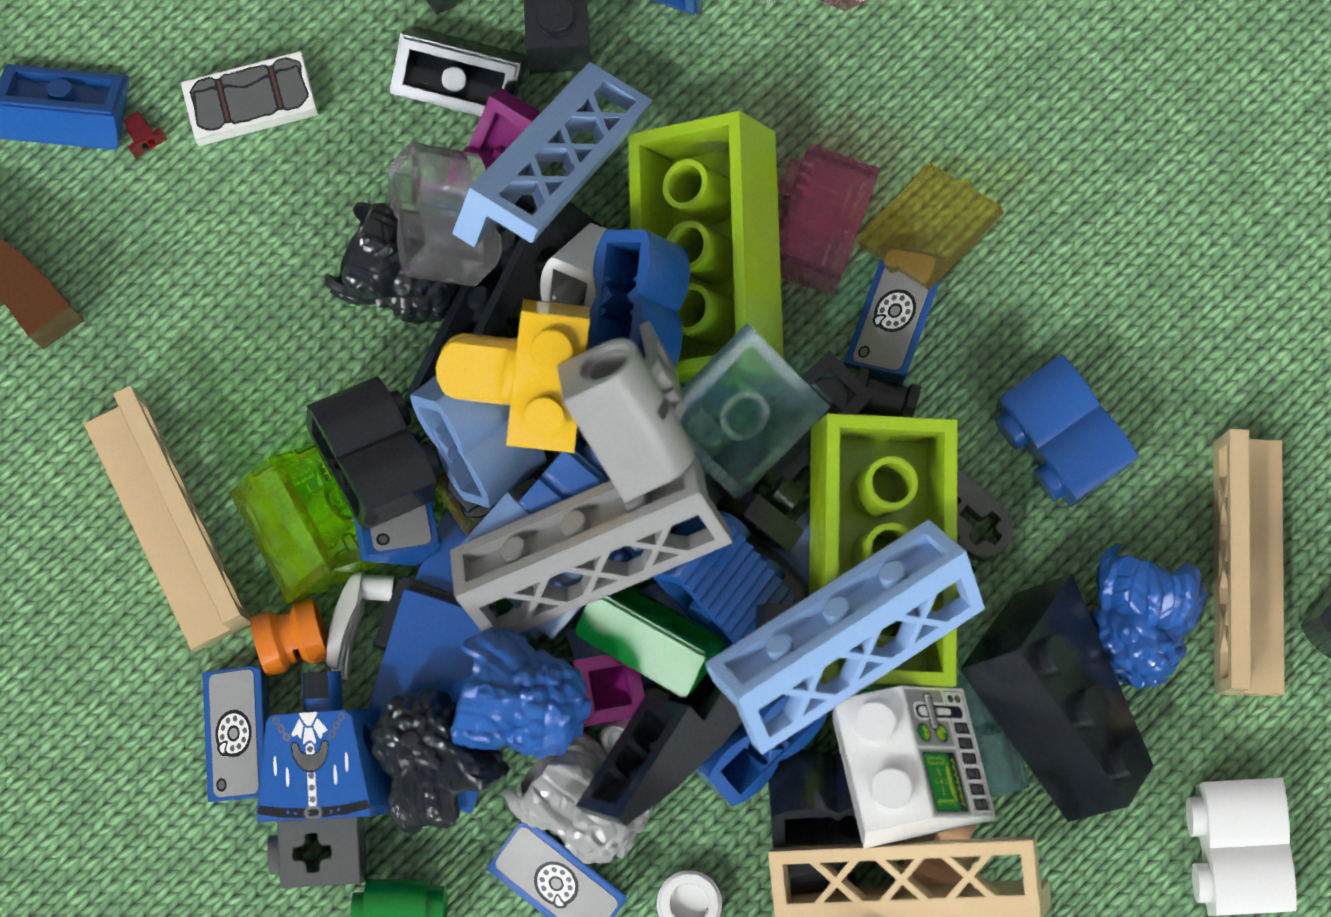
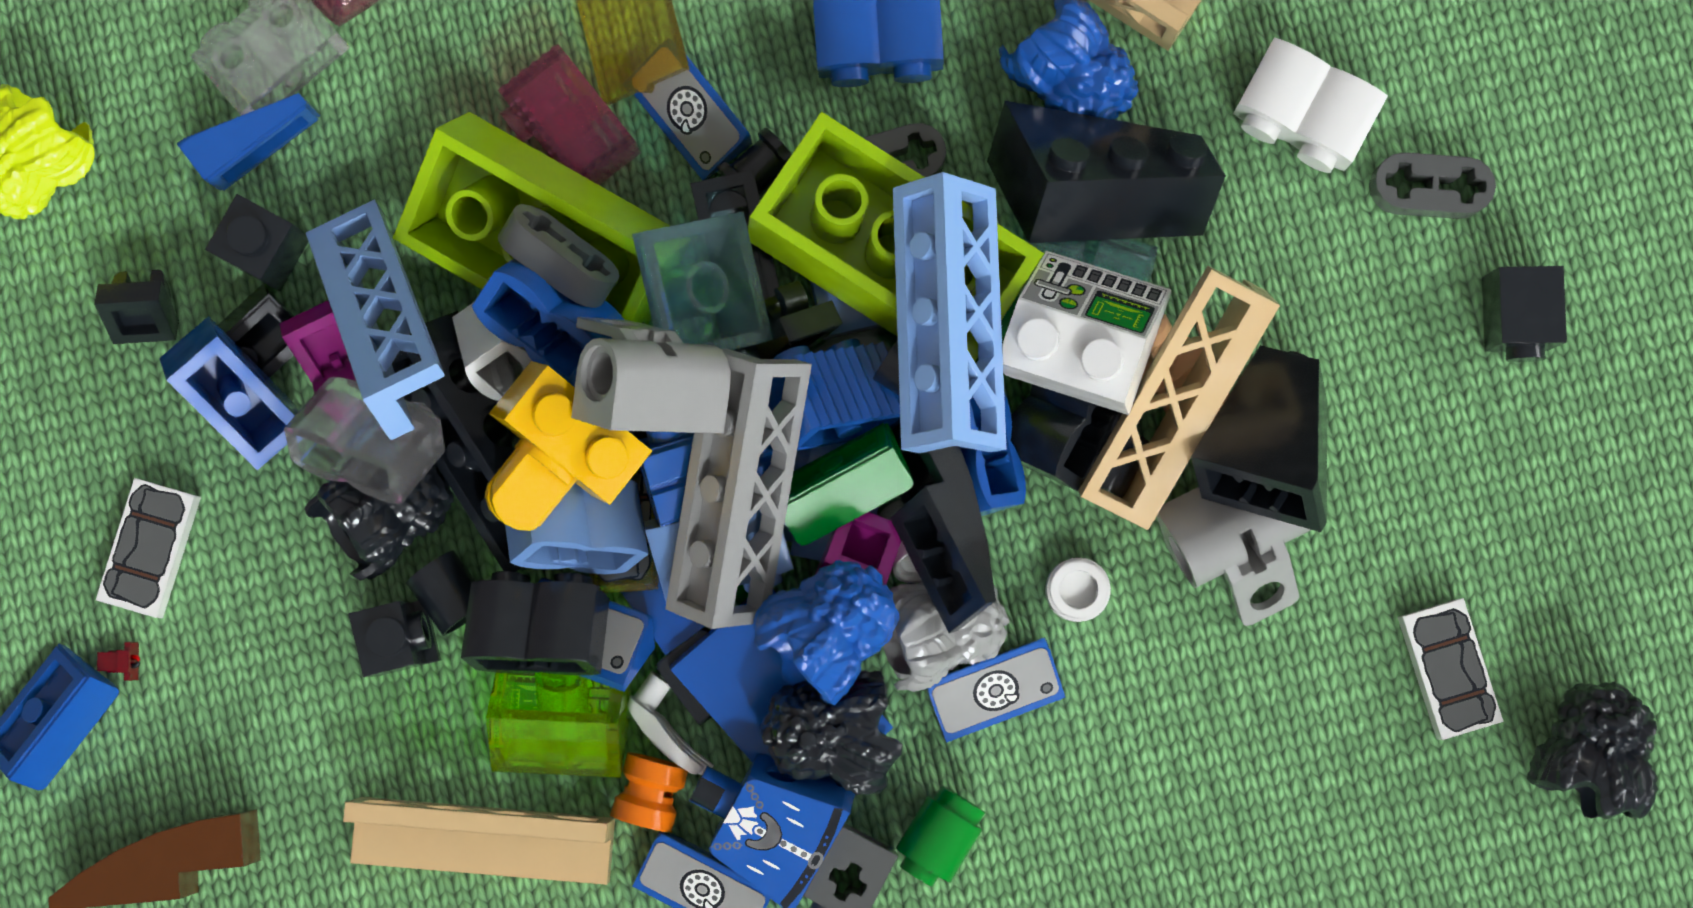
camera: 55 degrees left, 5 degrees up
(294, 343) = (393, 638): none -> black brick
(358, 358) = (443, 591): none -> black beam
(417, 81) = (230, 392): none -> blue brick
(694, 276) = (558, 256): none -> dark grey beam

